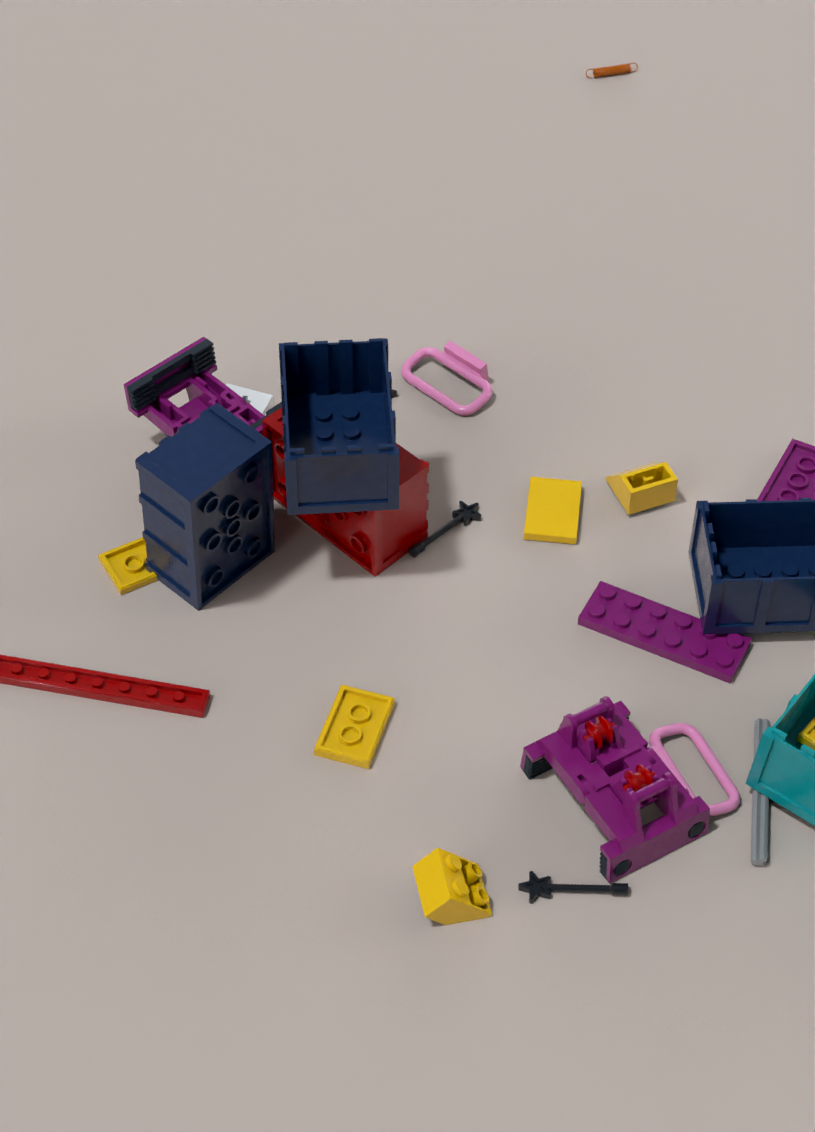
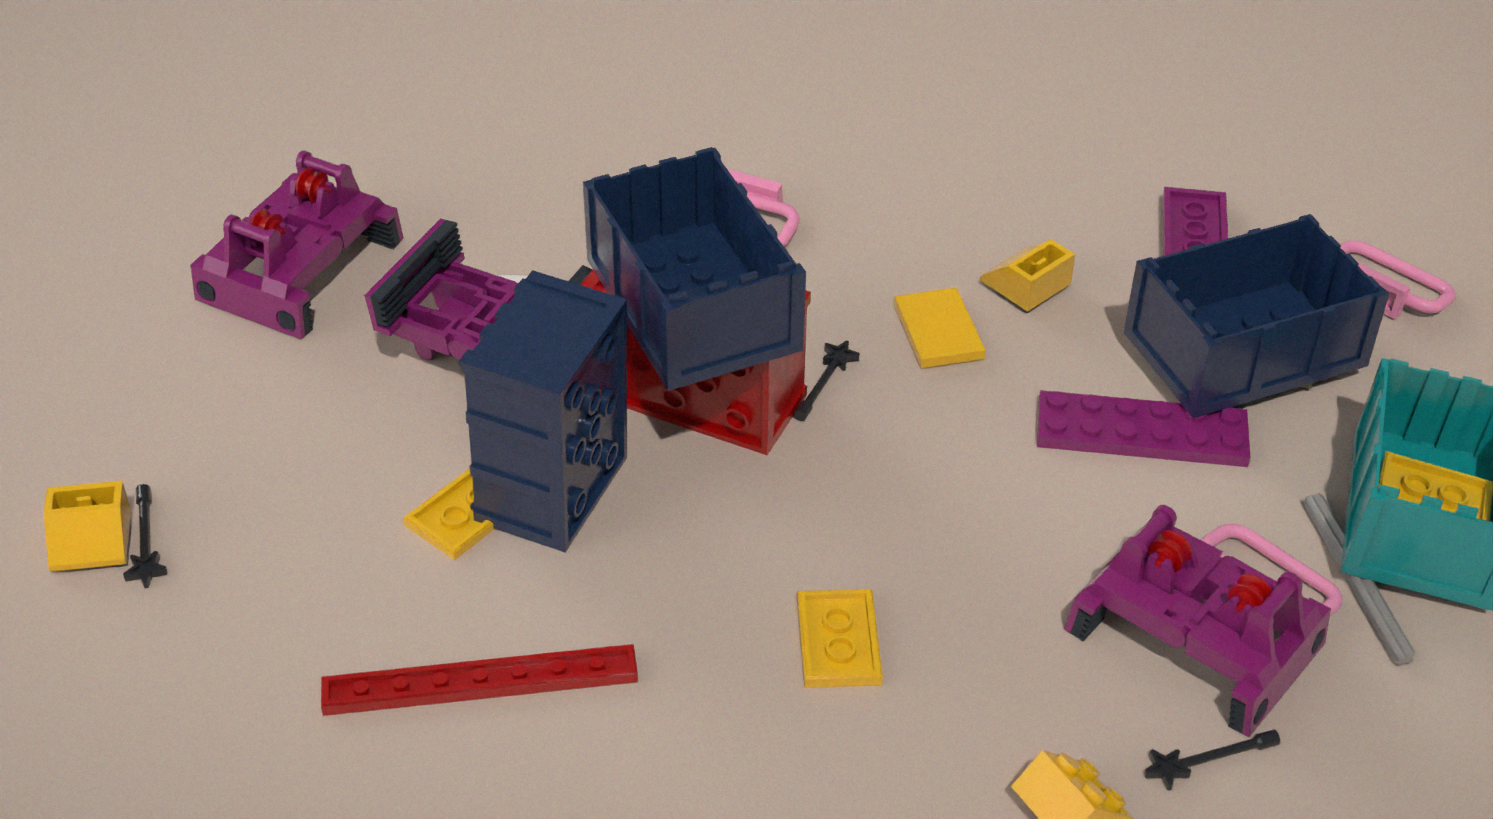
camera: 20 degrees left, 5 degrees down
(105, 325) = (297, 236): none -> magenta container

